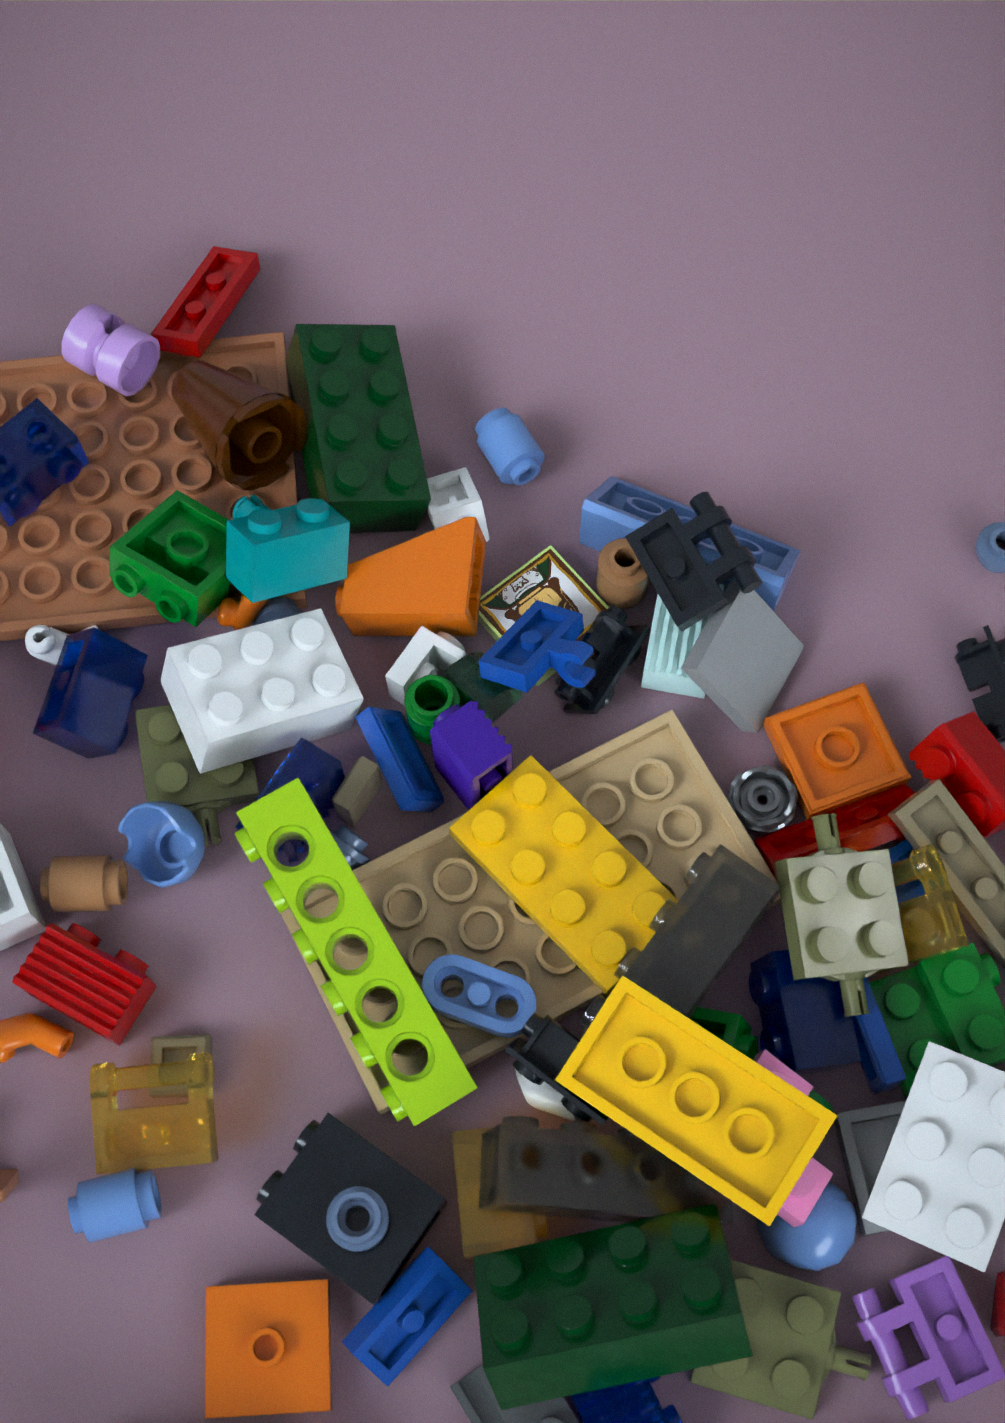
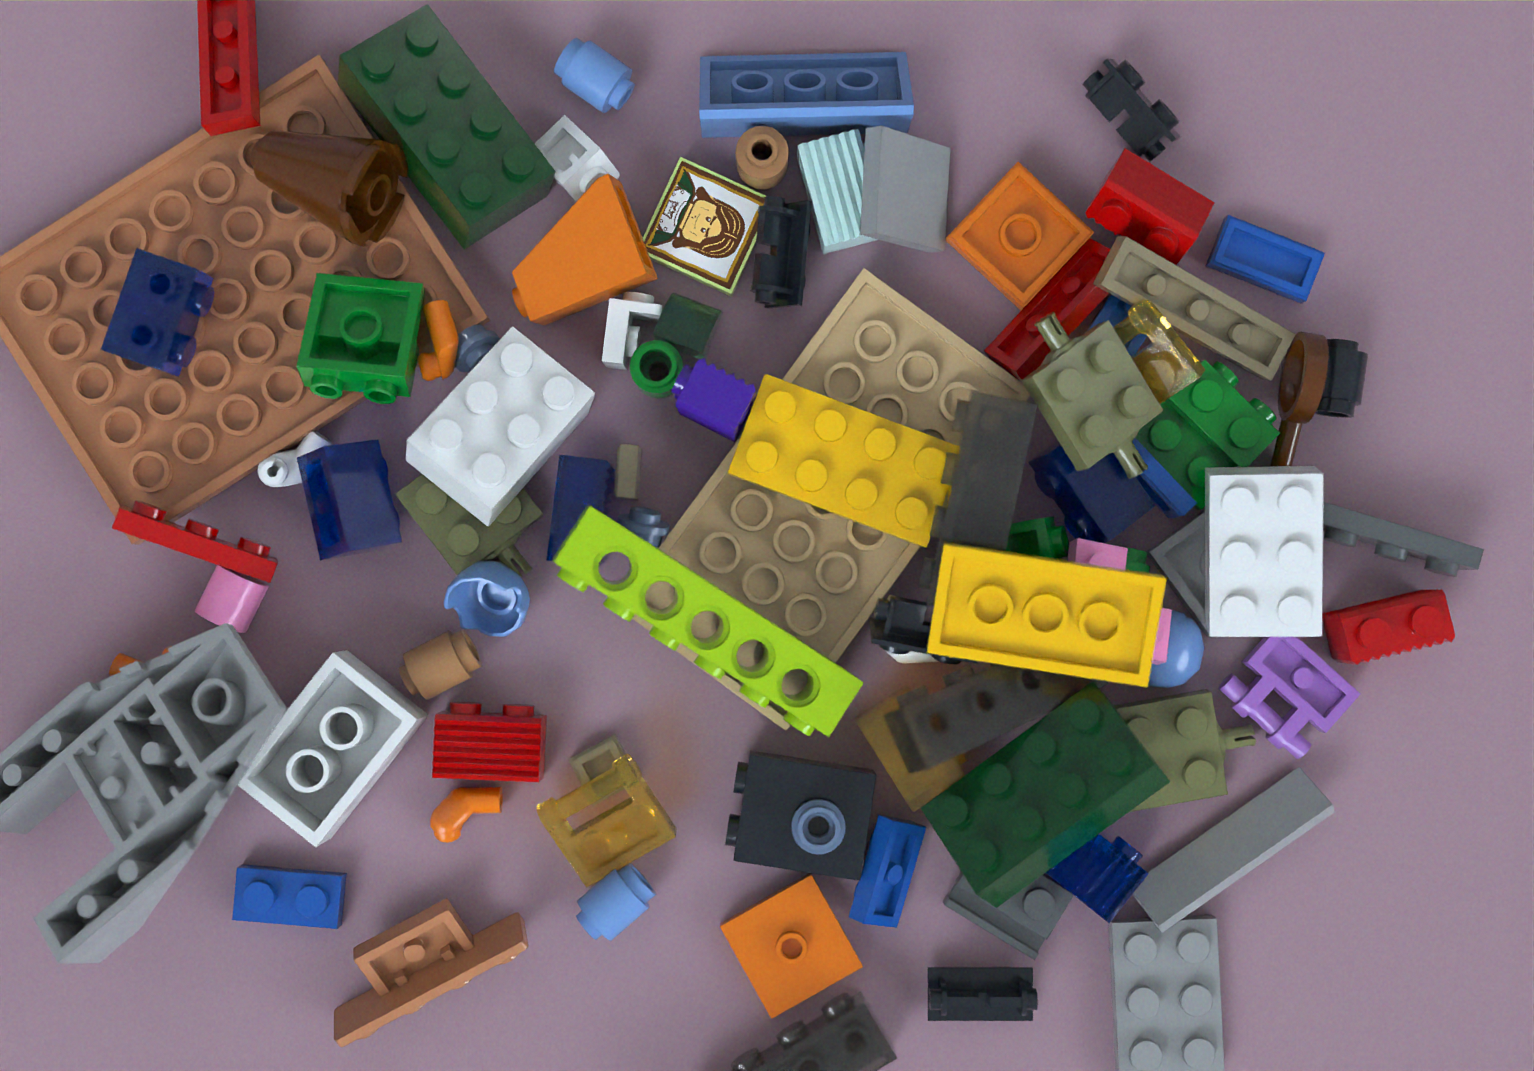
camera: 35 degrees left, 20 degrees up
(110, 349) = (164, 159): lavender wheel -> none
(285, 547) = (452, 291): teal brick -> none
(400, 759) = (650, 426): blue tile -> none
(480, 995) = (824, 603): medium blue plate -> none
(535, 643) = (722, 268): blue plate -> none
(679, 571) = (817, 143): black plate -> none
(766, 783) = (990, 302): flat silver plate -> none

